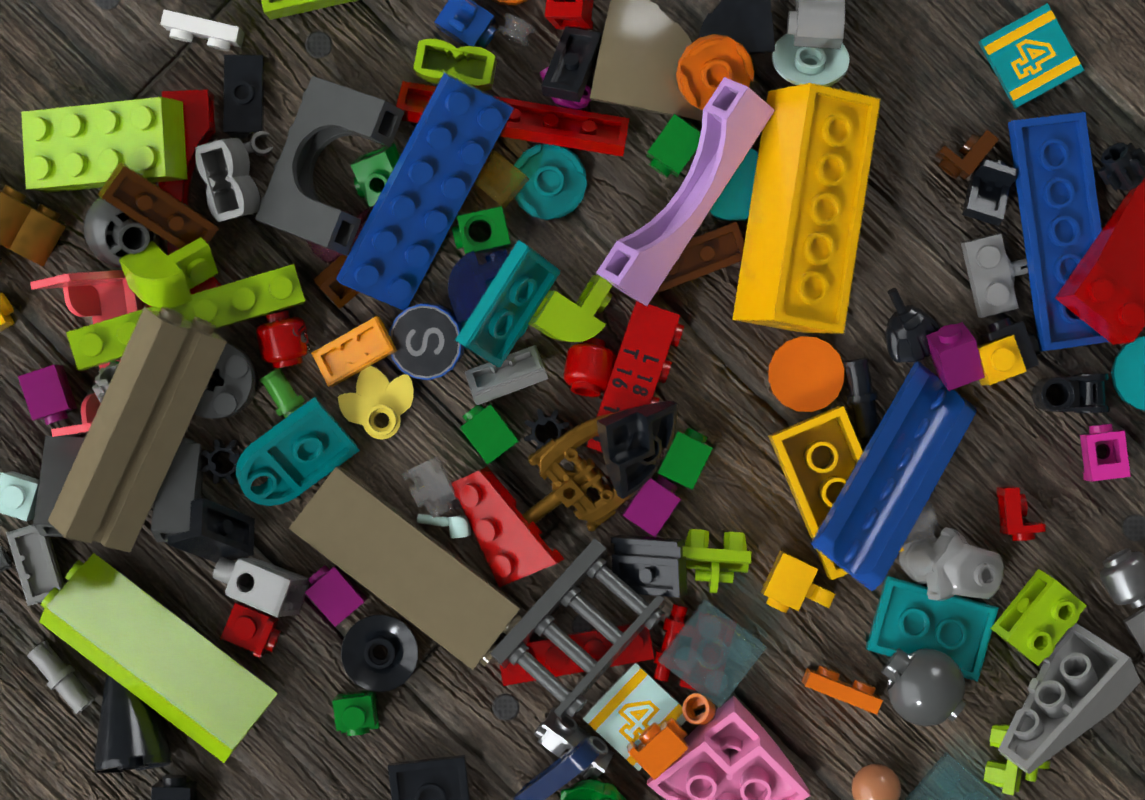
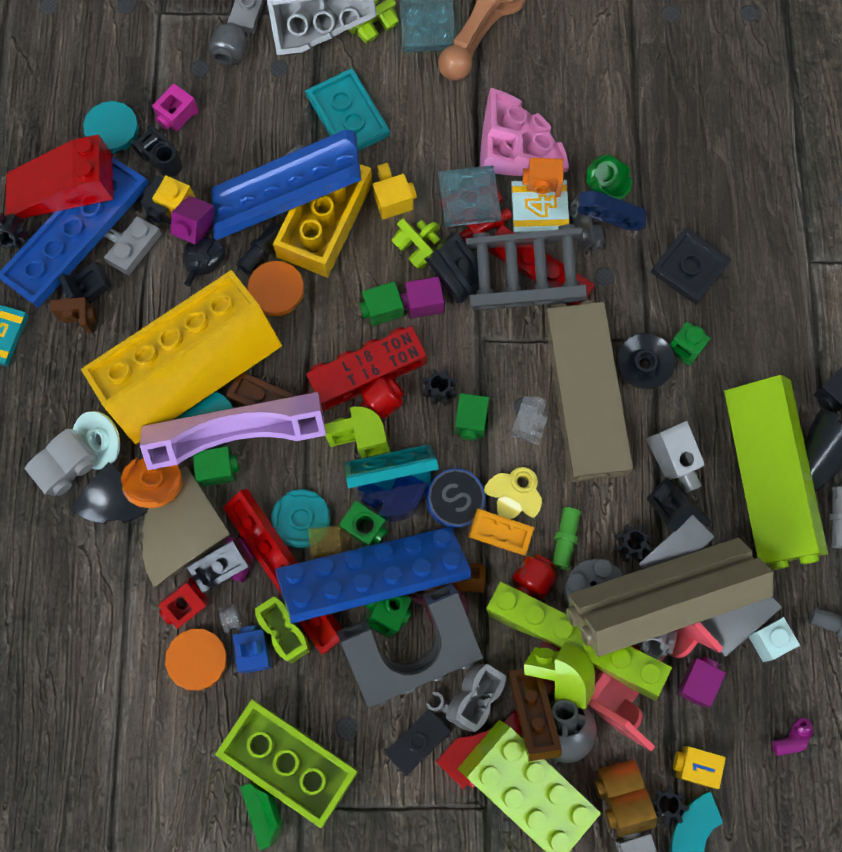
camera: 135 degrees left, 15 degrees down
(35, 563) = (798, 593): light grey plate -> none
(218, 34) = (411, 815): white plate -> none
(251, 629) = (708, 439): red bracket -> none
(294, 455) = (591, 506): teal tile -> none
(335, 593) = (640, 413): magenta brick -> none
(458, 525) = (536, 388): light aqua hand -> none
(502, 532) = (517, 357): red wing -> none
(517, 372) = (420, 431): light grey plate -> none
(571, 486) = (456, 345): pearl gold bar -> none
(634, 441) = (398, 331): black brick -> none
(696, 702) = (508, 172): orange hinge -> none
(858, 694) = (425, 129): orange plate -> none
(925, 686) = (380, 82): dark grey brick -> none
(952, 566) = (302, 120): light grey head -> none
(1011, 509) = (250, 124): red bracket -> none
(1039, 617) = (290, 65): lime brick -> none

